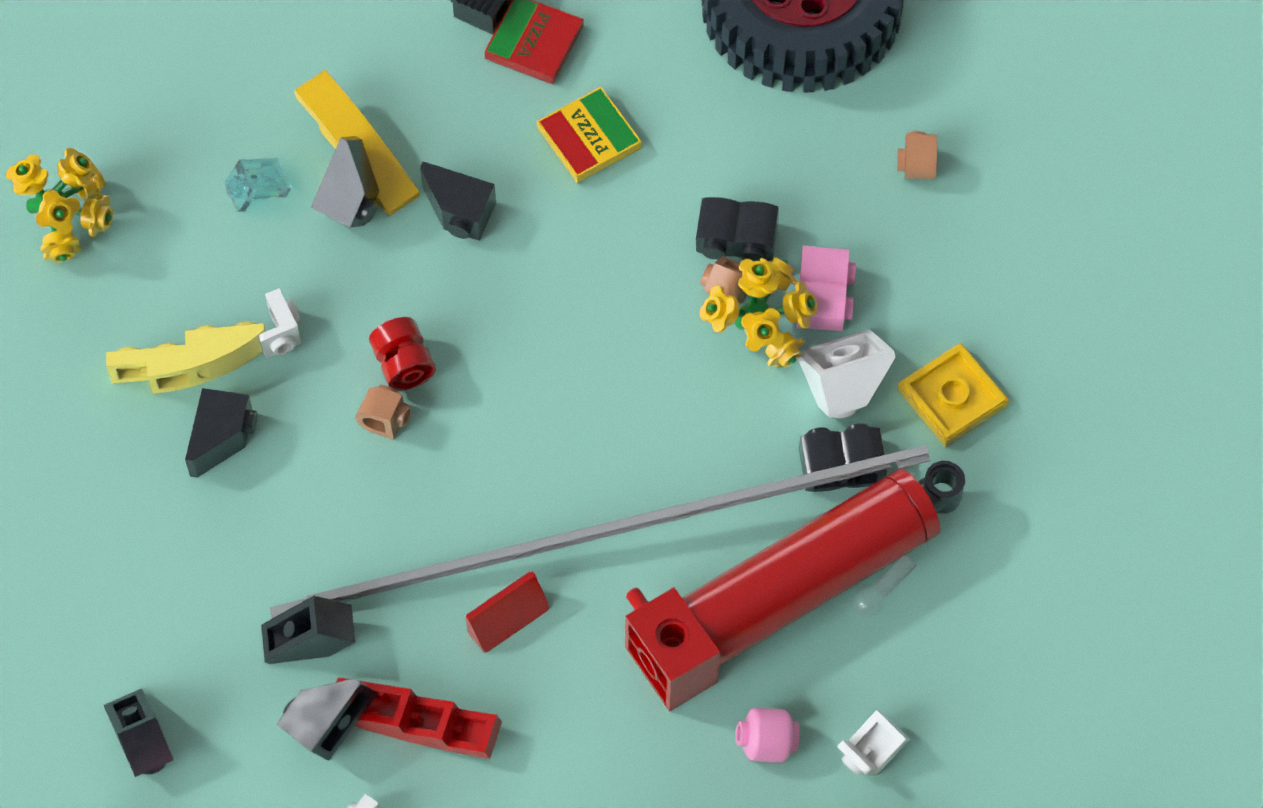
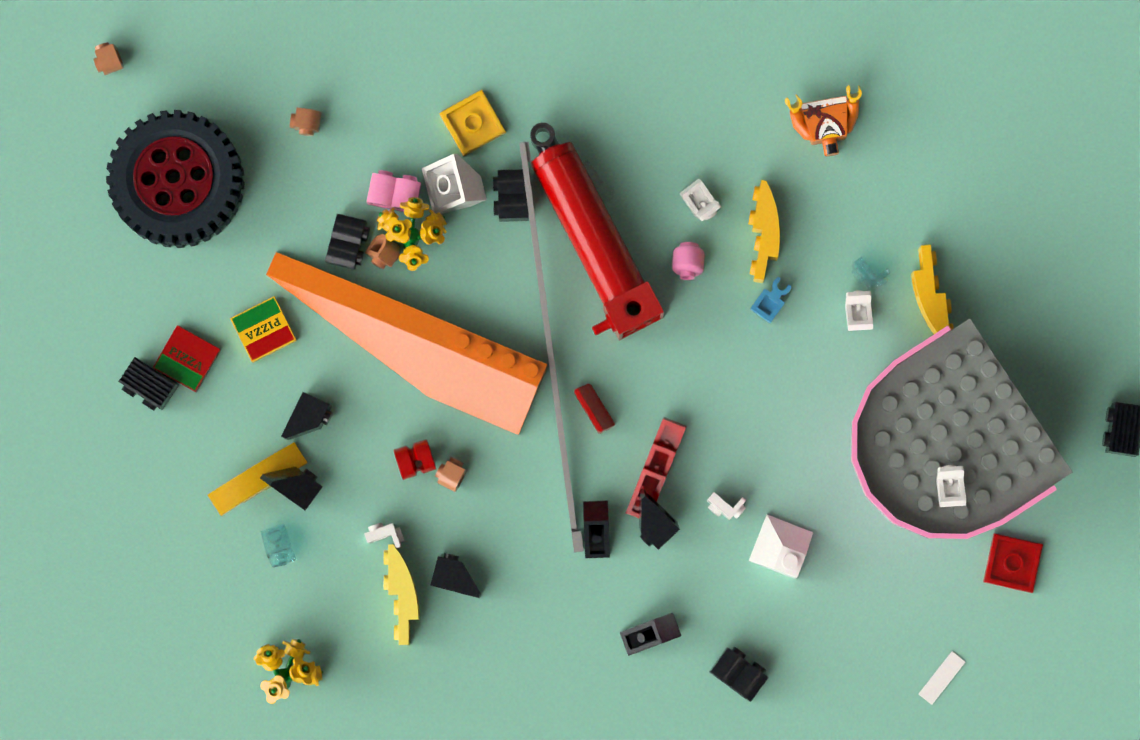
camera: 80 degrees left, 20 degrees up
(576, 363) = (421, 348): none -> wedge

